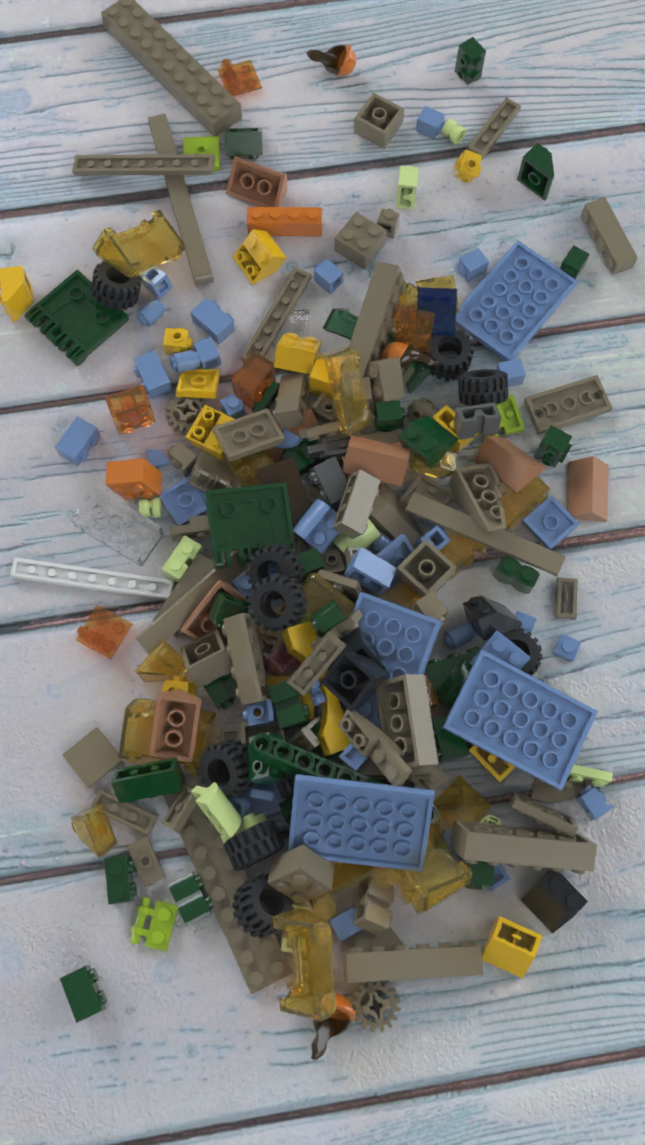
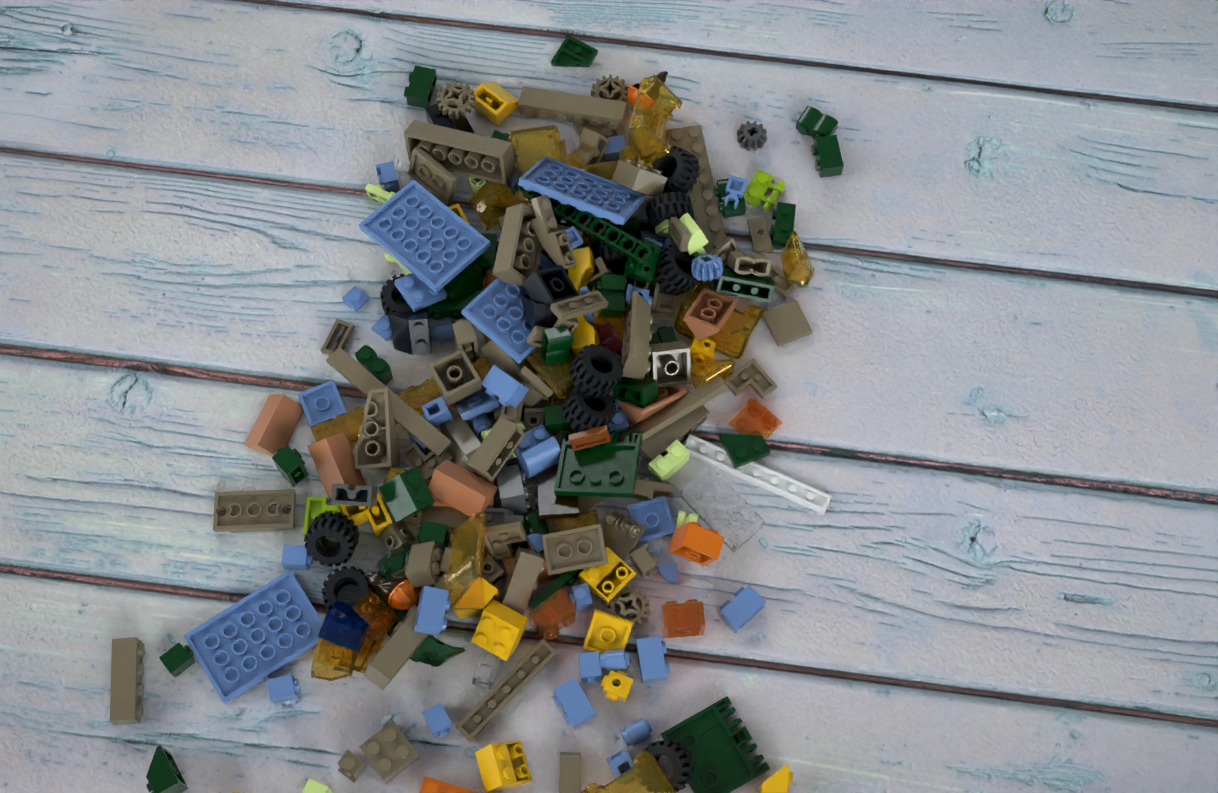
camera: 165 degrees left, 5 degrees down
(106, 1039) = (815, 123): none -> dark green brick
(108, 597) = (744, 448): none -> dark green wing
(117, 682) = (751, 375): none -> dark tan plate
(146, 805) = (749, 263): none -> dark tan brick
(184, 778) = (707, 267): none -> medium blue gear
(184, 901) = (735, 189): none -> medium blue plate
(190, 1002) = (751, 135): none -> dark grey gear
(233, 803) = (678, 234): none -> dark tan tile
(252, 548) = (589, 438): none -> dark orange tile
(361, 328) = (431, 611): none -> medium blue brick
(438, 1054) = (574, 54): none -> dark green wing
(547, 912) = (453, 97): none -> dark tan gear
(606, 938) = (421, 86): none -> dark green brick

